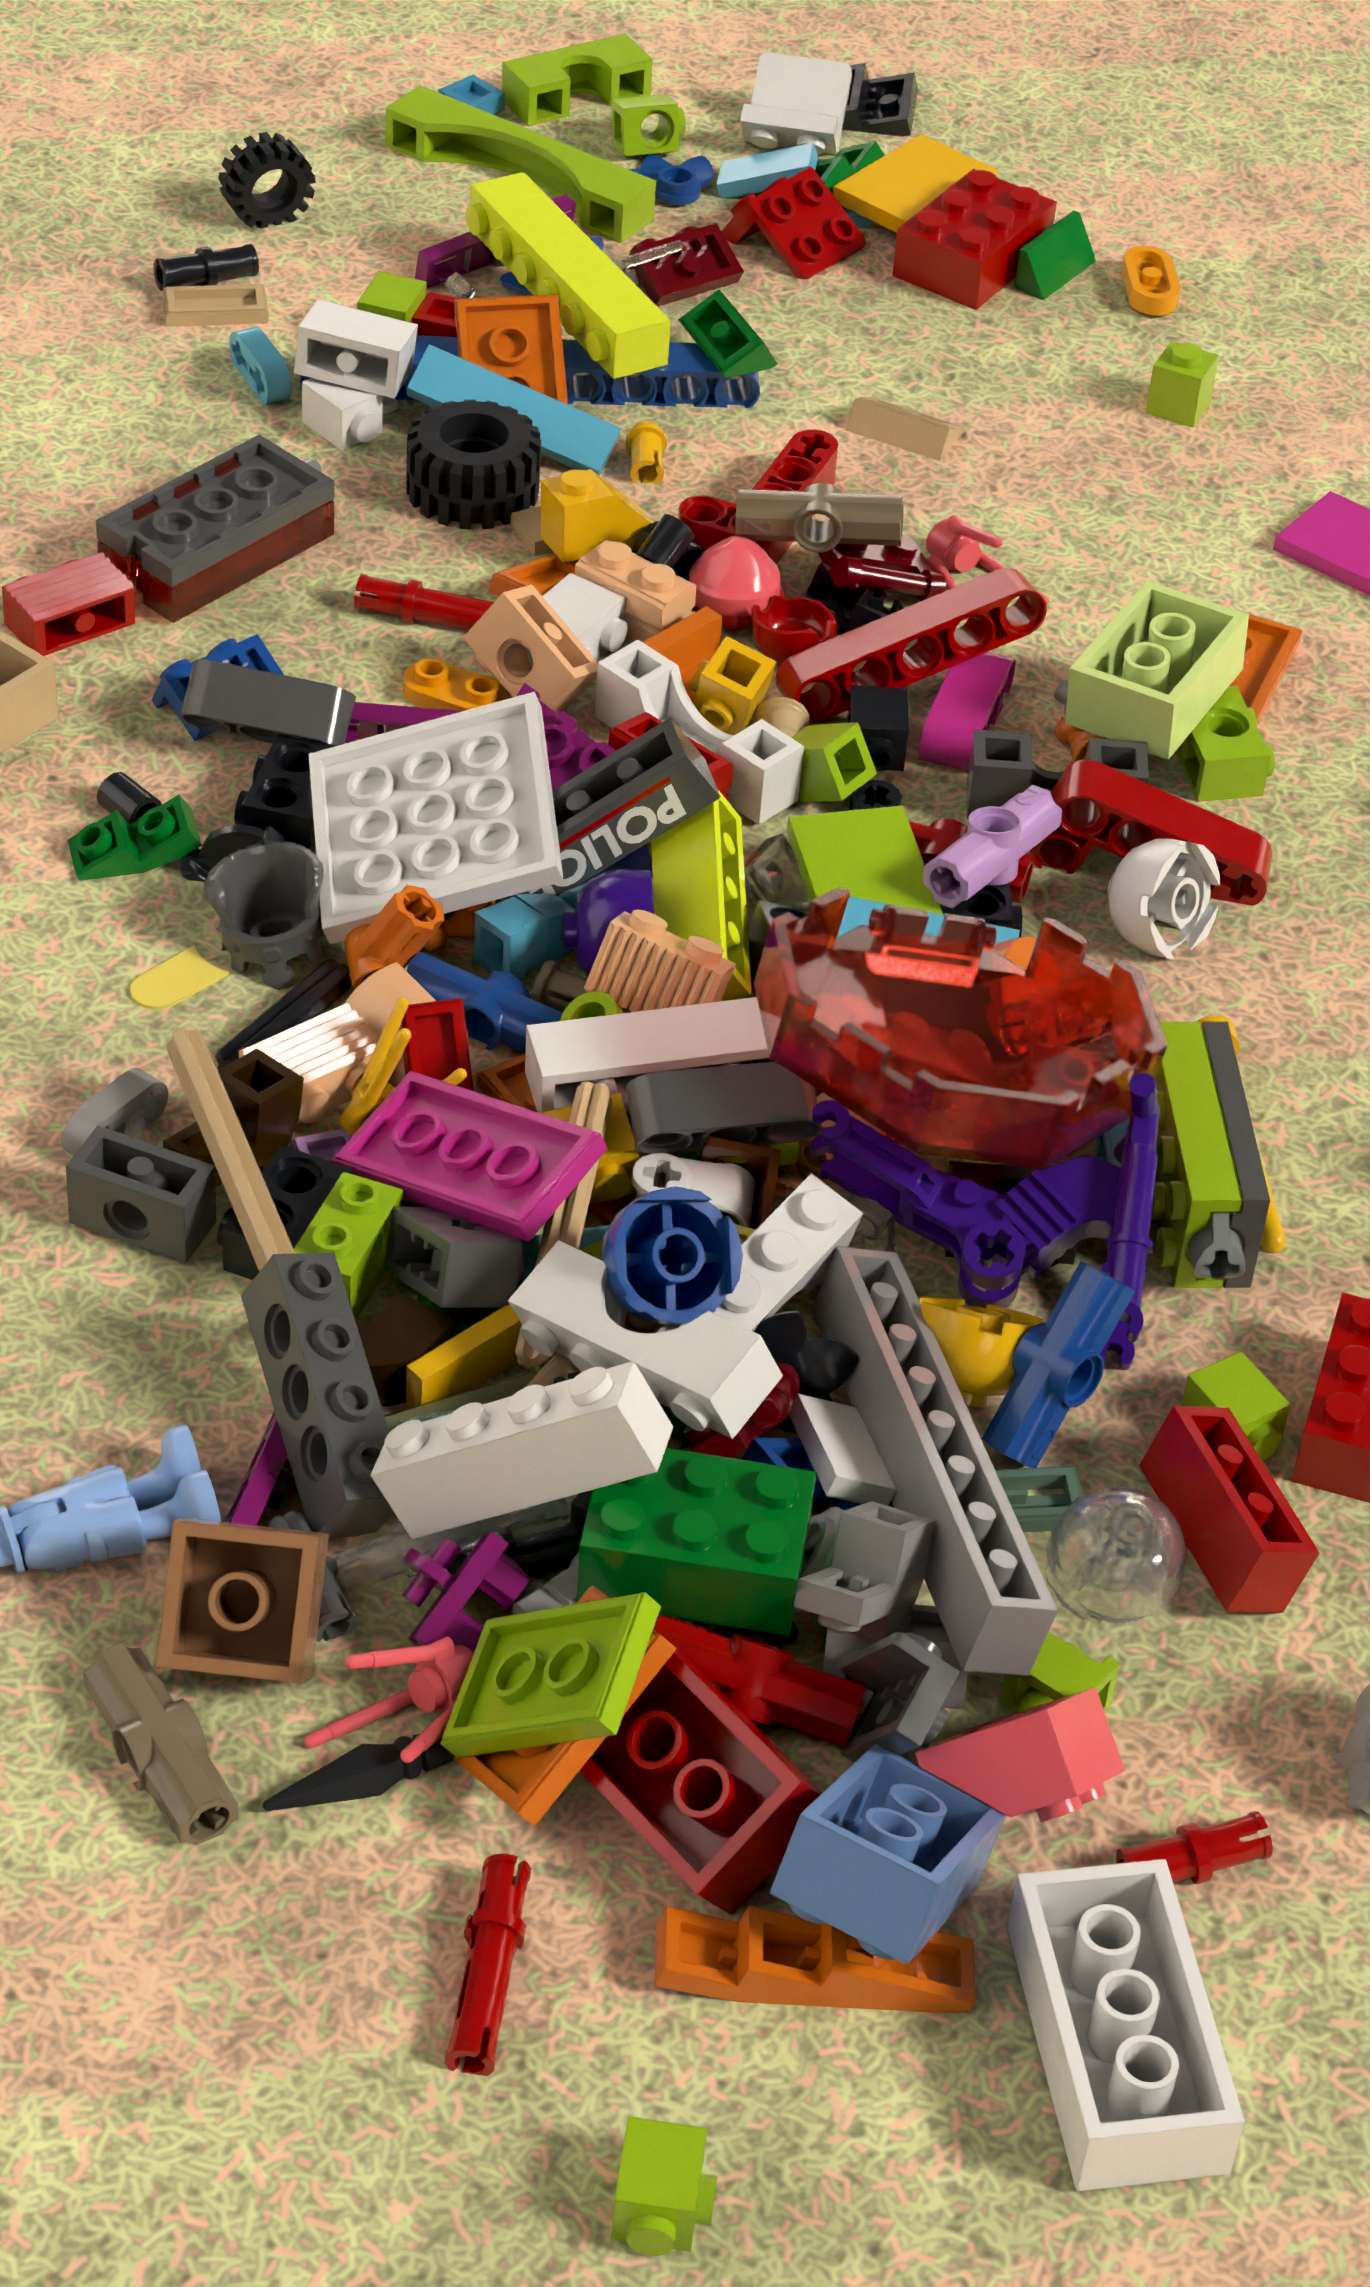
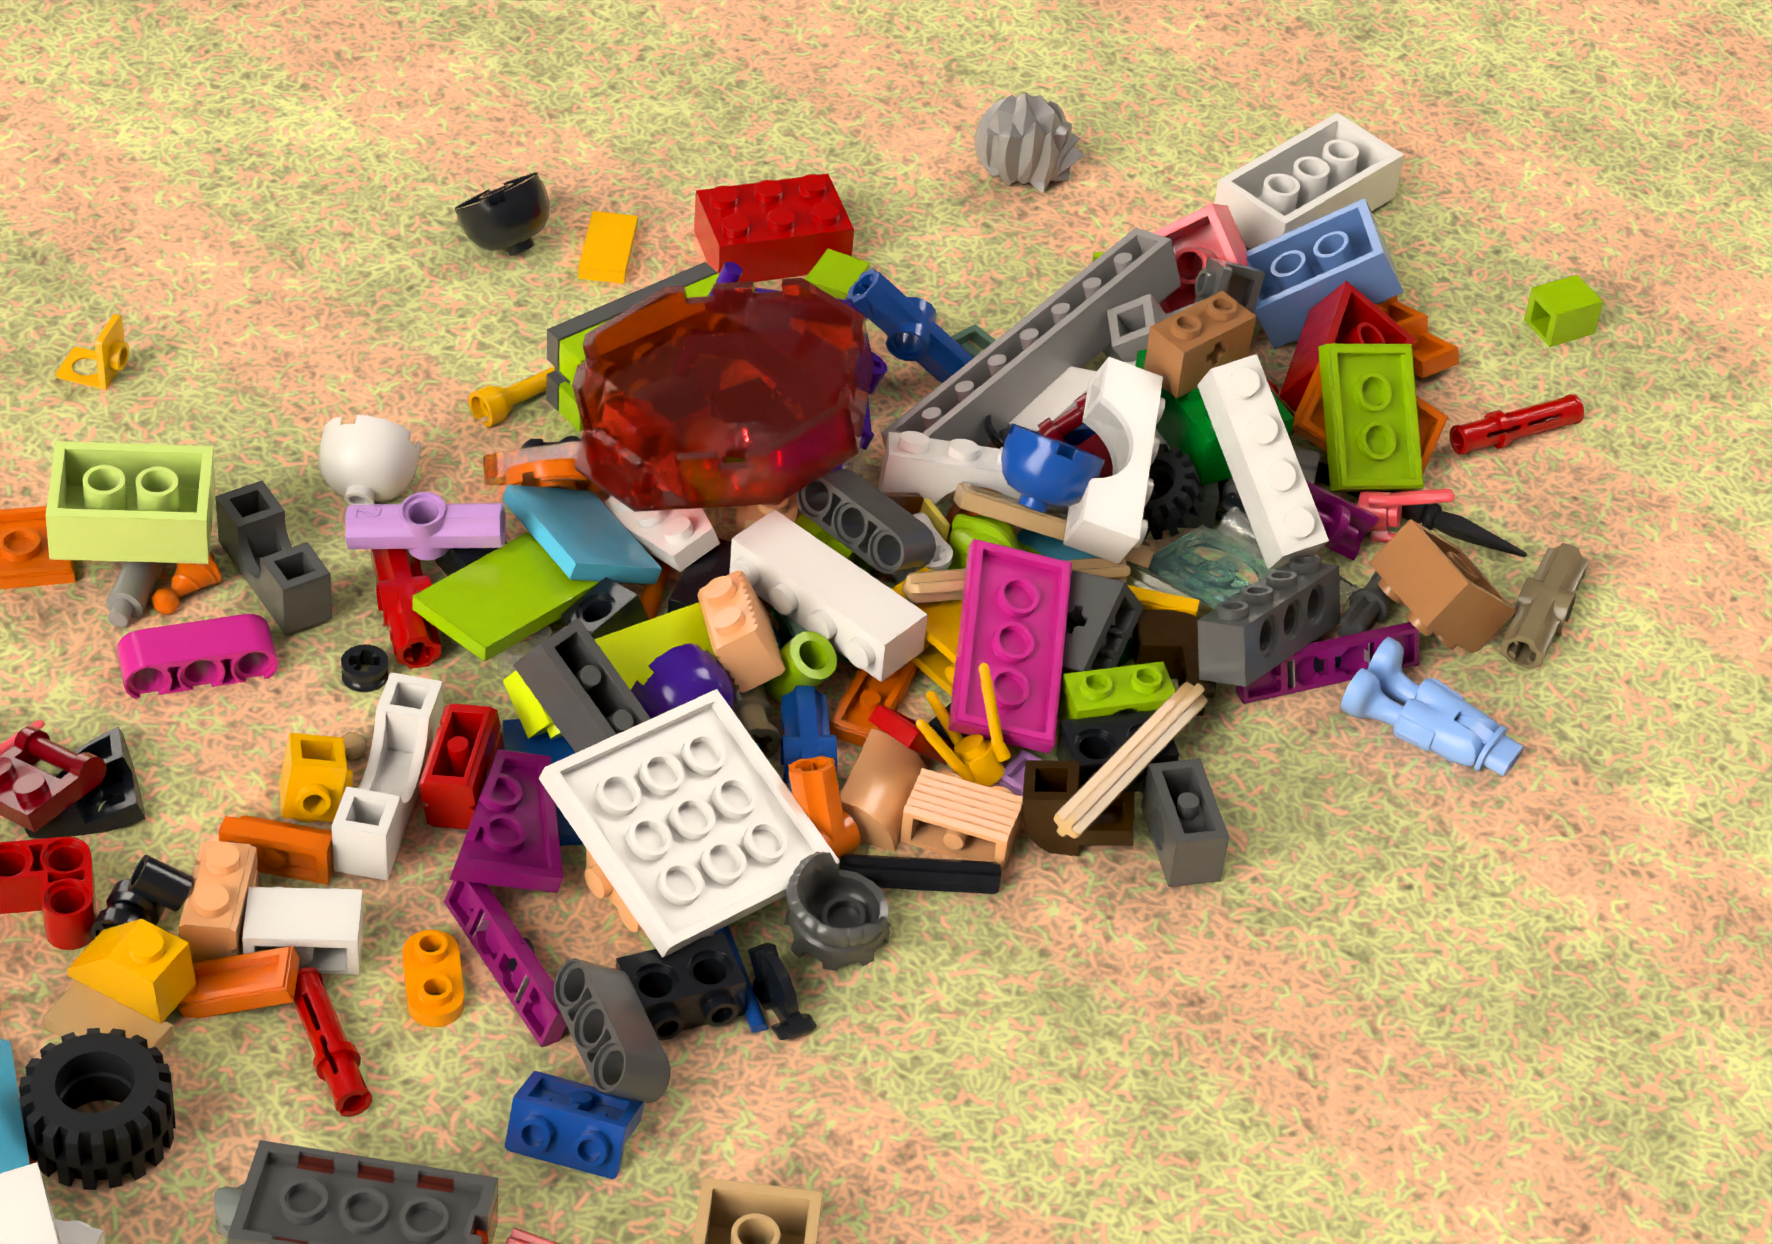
camera: 125 degrees left, 0 degrees up
(121, 848) = (814, 1068): green slope -> none
(122, 1106) = (1115, 897): light grey beam -> none
(126, 796) = (772, 1097): black hinge -> none
(174, 980) = (932, 967): light yellow piece -> none
(526, 621) = (389, 901): light nougat brick -> none
(734, 578) = (140, 833): coral hair -> none
(736, 1461) = (1198, 340): none -> medium nougat brick
(791, 626) = (181, 789): red hair -> none
(833, 761) = (355, 690): lime brick -> none
(853, 517) = (59, 781): dark tan piece -> none
(883, 722) = (277, 690): black brick -> none
(937, 647) = (175, 683): red beam -> none
(977, 1344) = (911, 375): yellow cylinder -> none
(1116, 1557) = (999, 289): clear cylinder -> none
(1123, 812) = (305, 490): red beam -> none
(1201, 1851) = (1151, 205): red pin -> none
(1229, 1509) = (935, 248): red brick -> none

